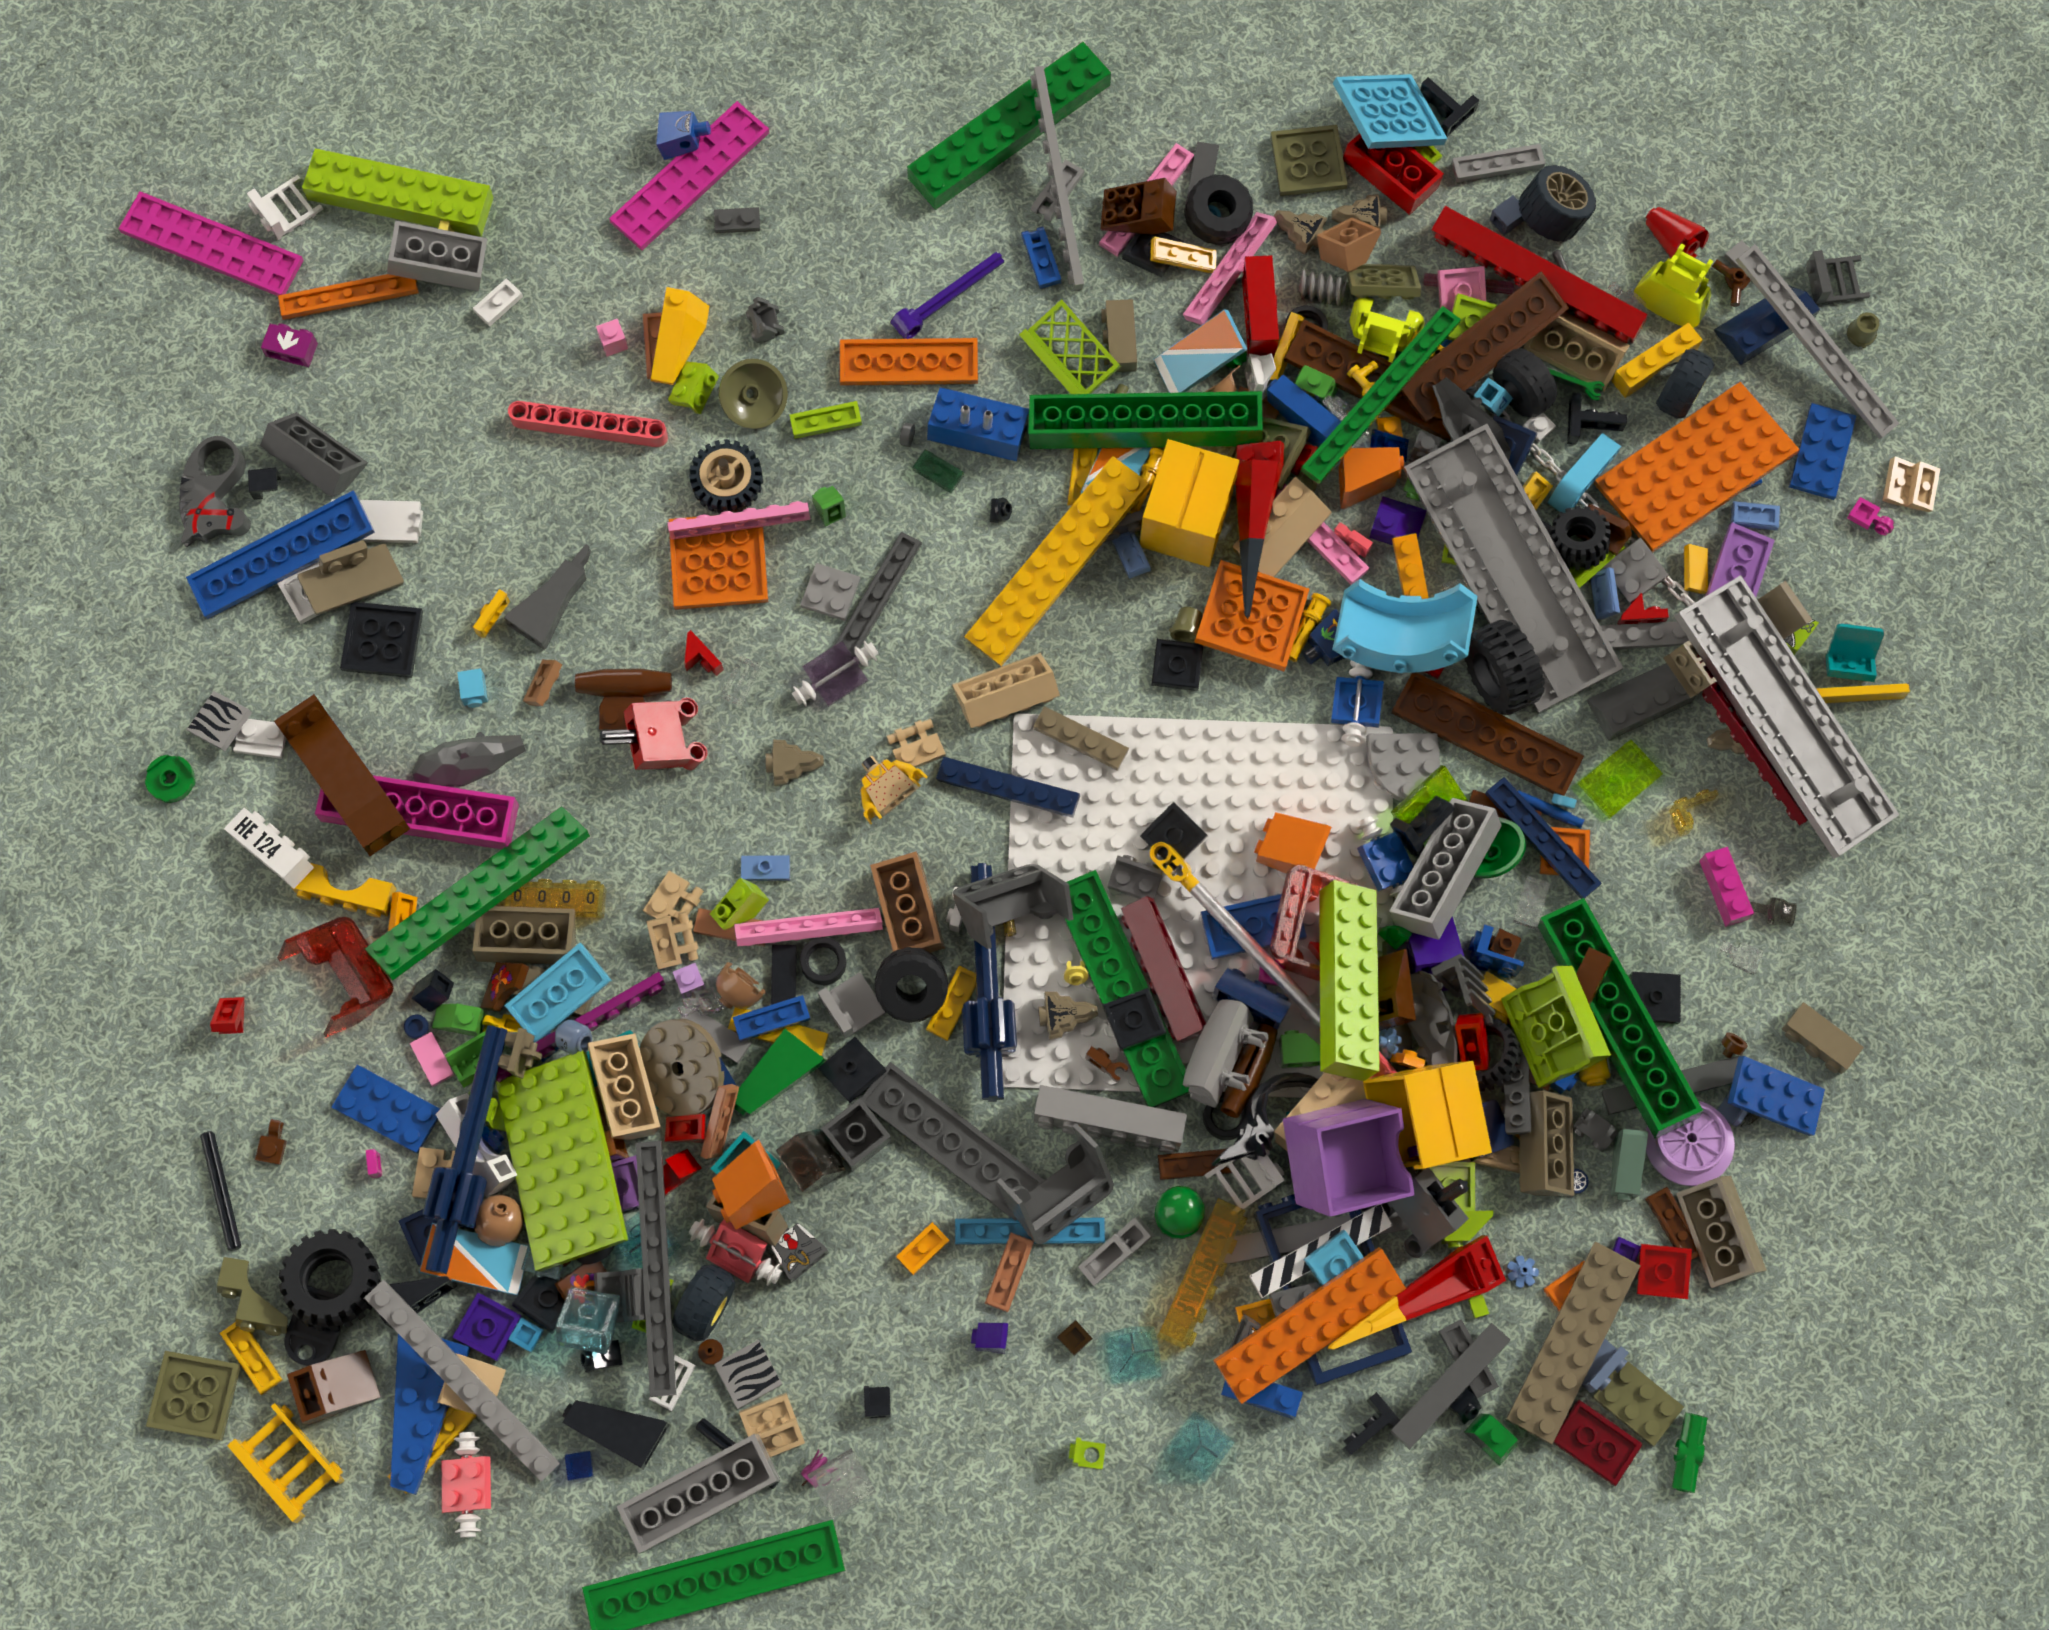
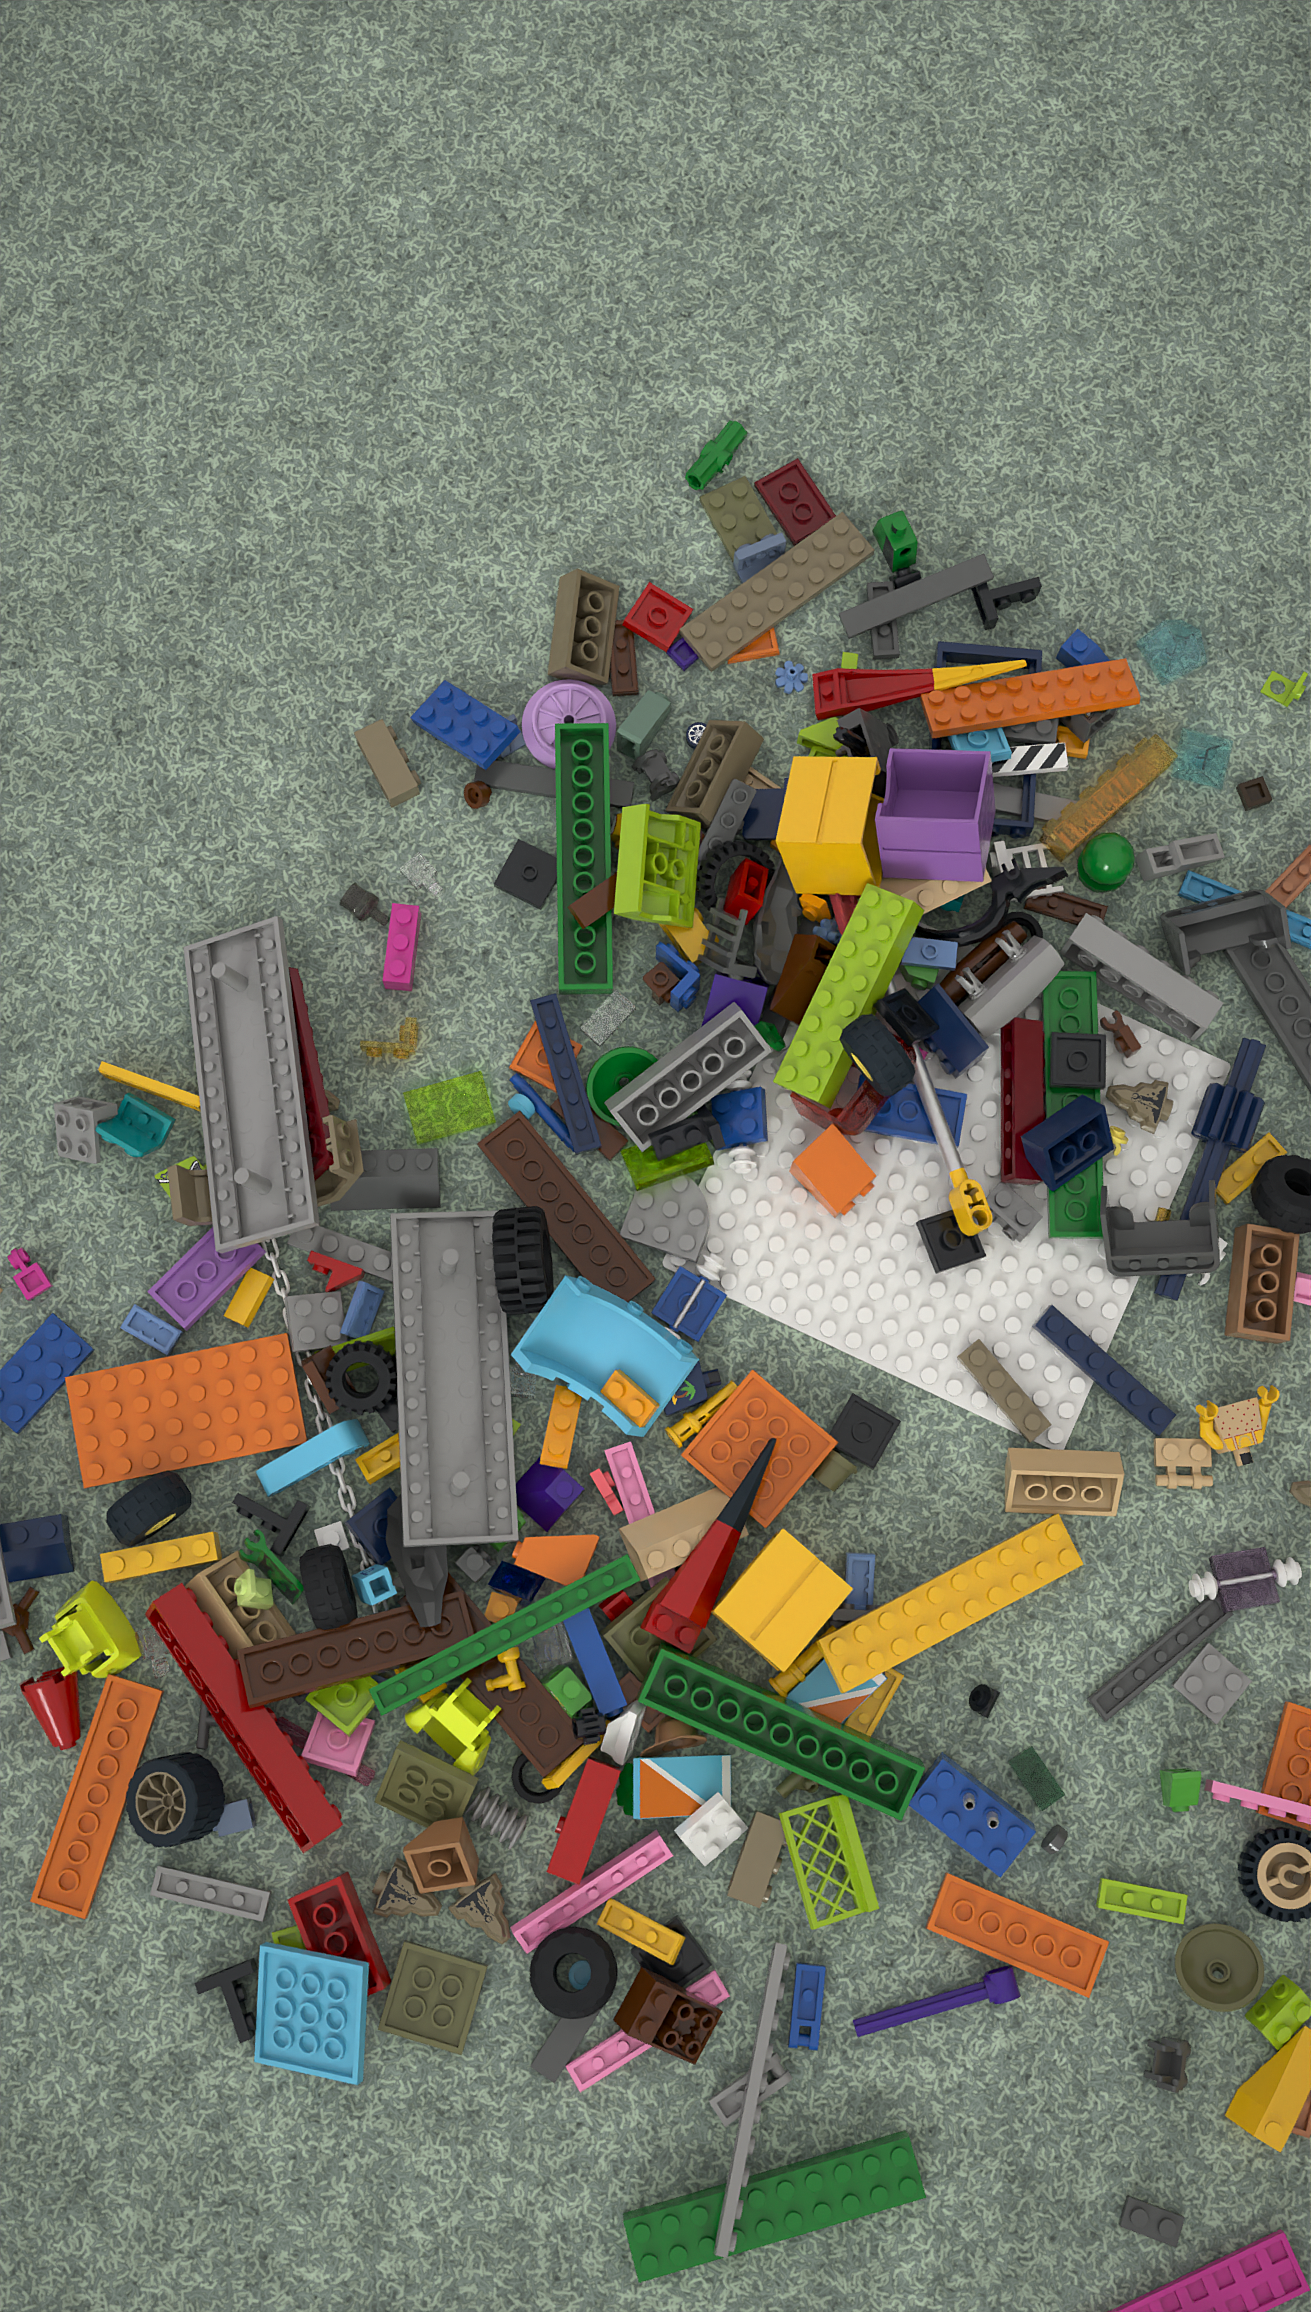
camera: 160 degrees left, 5 degrees up
(1115, 943) = (1068, 1141): none -> dark blue slope
(1164, 338) = (711, 1829): none -> white plate
(1289, 361) = (588, 1726): none -> black gear
(1293, 984) = (906, 1017): none -> black plate
(1296, 1055) = (930, 954): none -> medium blue plate
(1306, 922) = (877, 1055): none -> black wheel
(1369, 609) = (630, 1398): none -> light orange plate
(1577, 362) = (253, 1591): none -> yellowish green bracket
(1612, 181) = (97, 1796): none -> orange plate
(1902, 641) = (76, 1127): none -> light grey bracket

